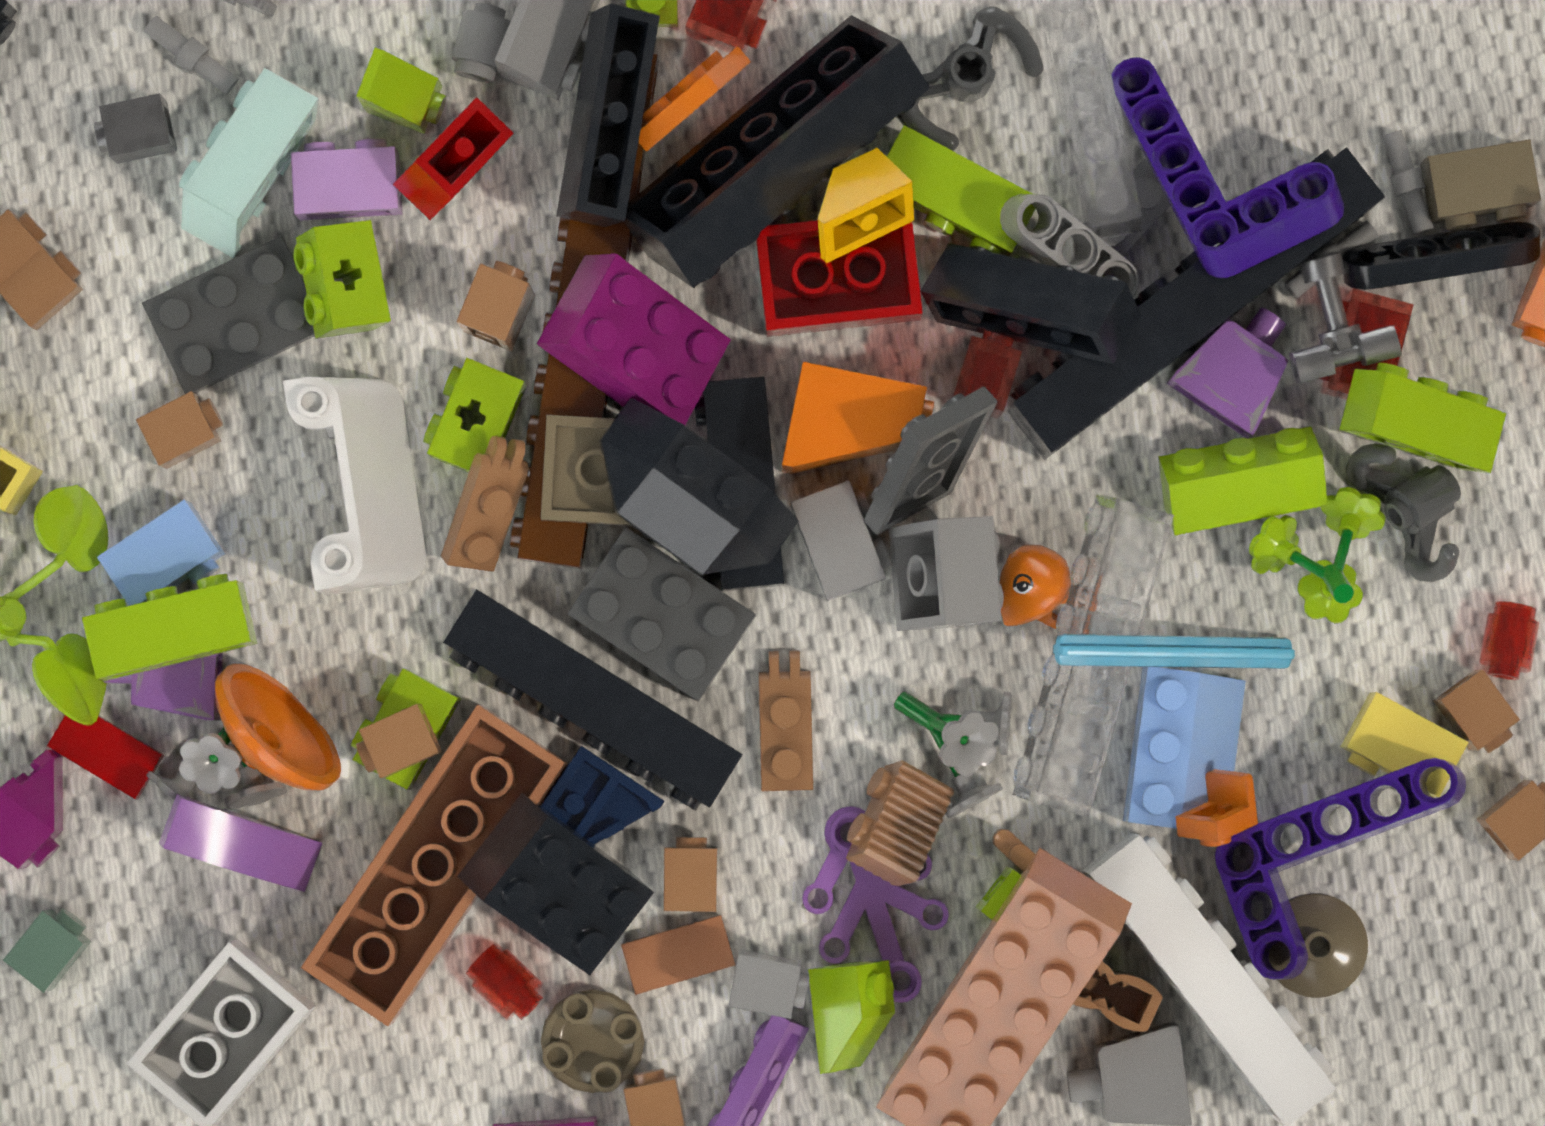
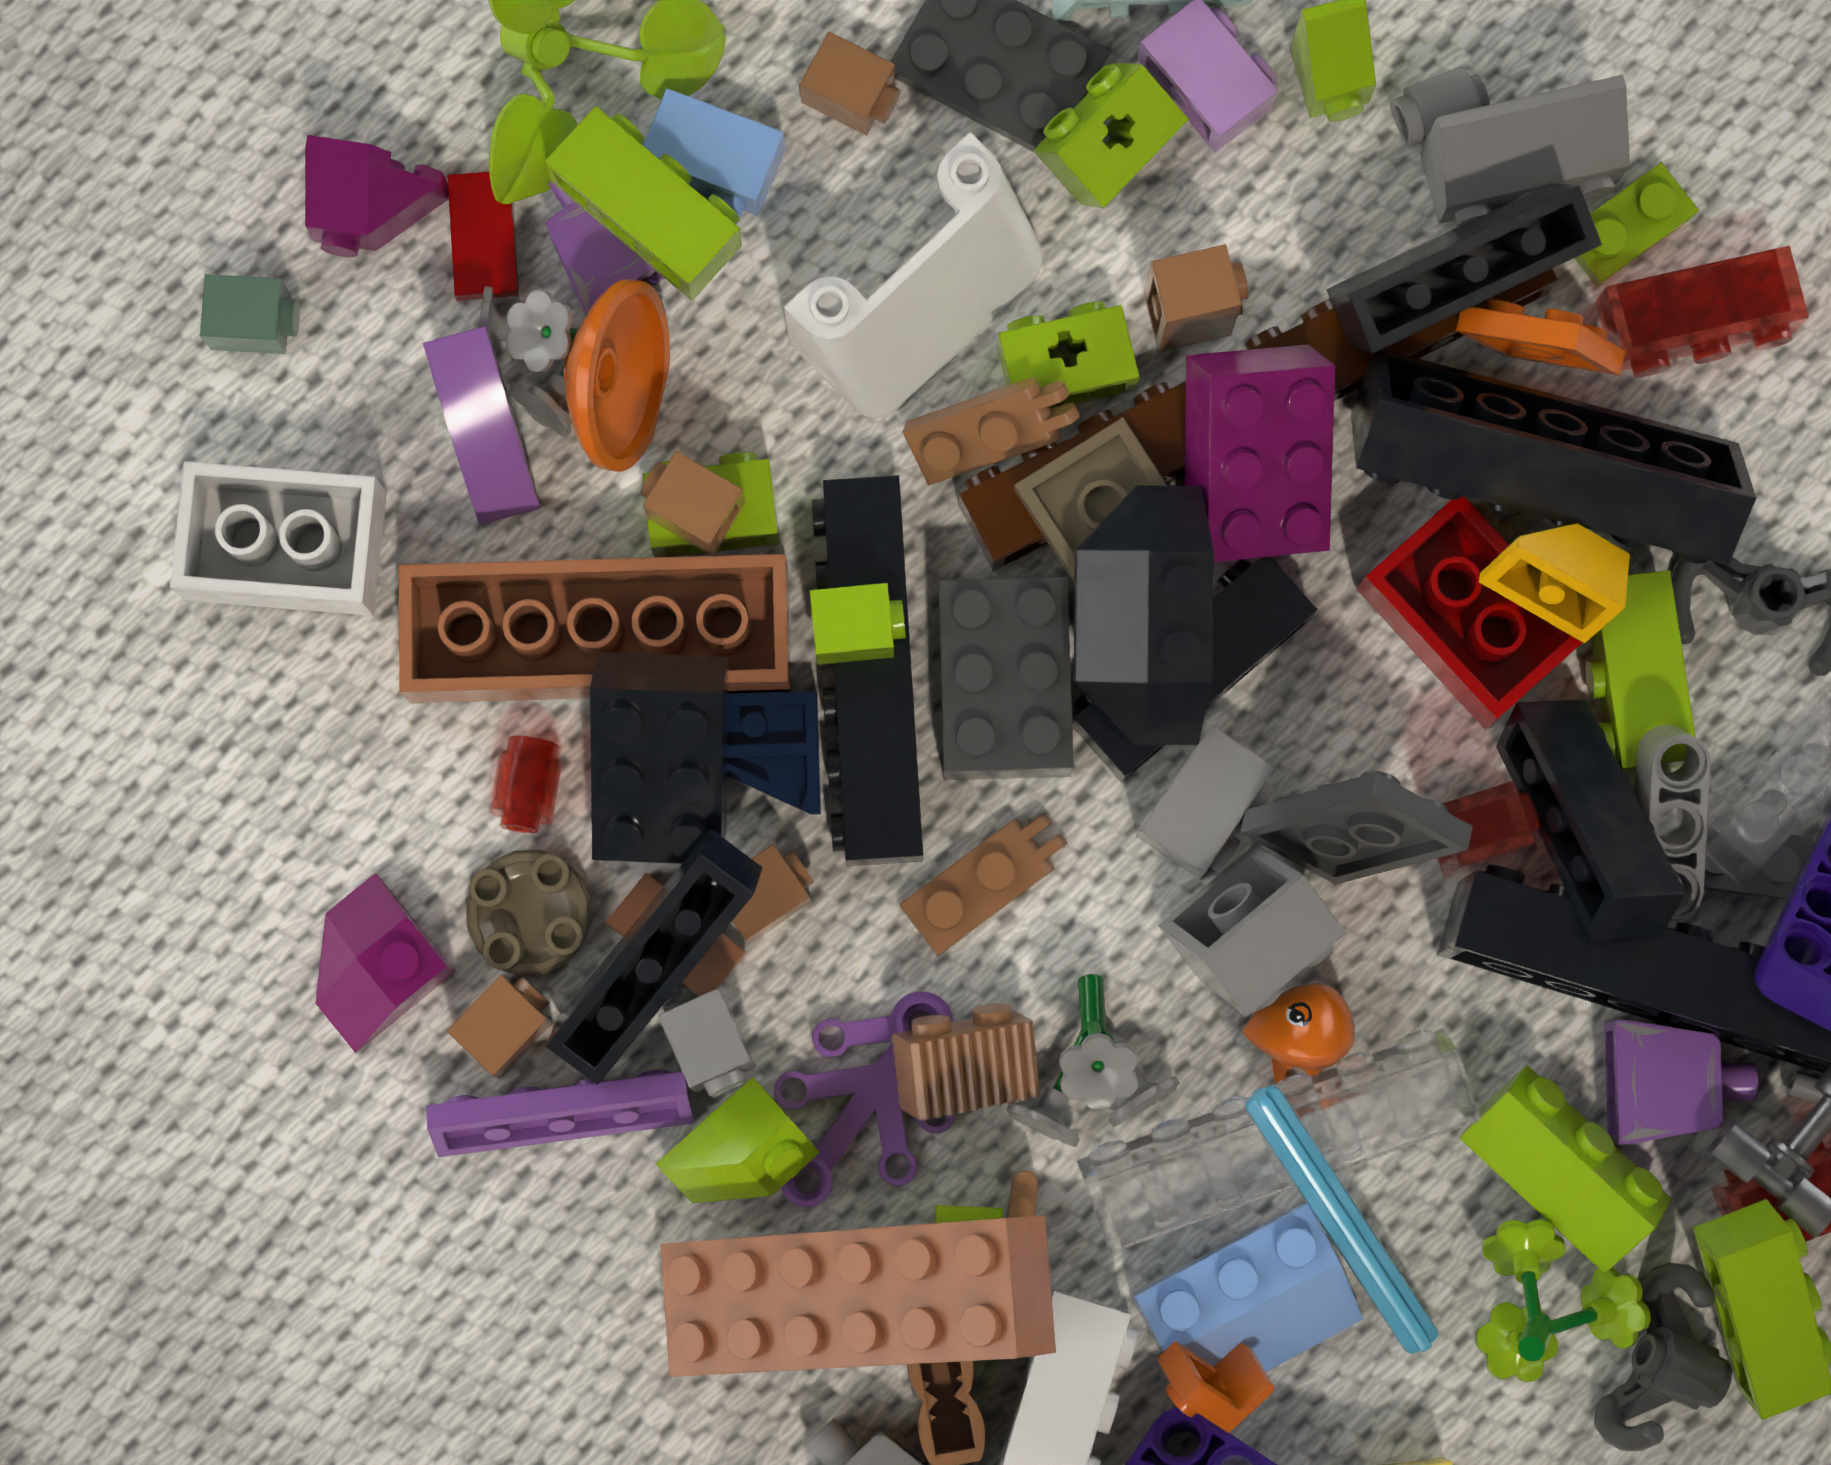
camera: 55 degrees right, 5 degrees down
(453, 158) = (1308, 153): red brick -> none
(558, 690) = (855, 623): none -> lime brick
(685, 979) = (654, 956): none -> black brick
(848, 416) = (1334, 715): orange slope -> none

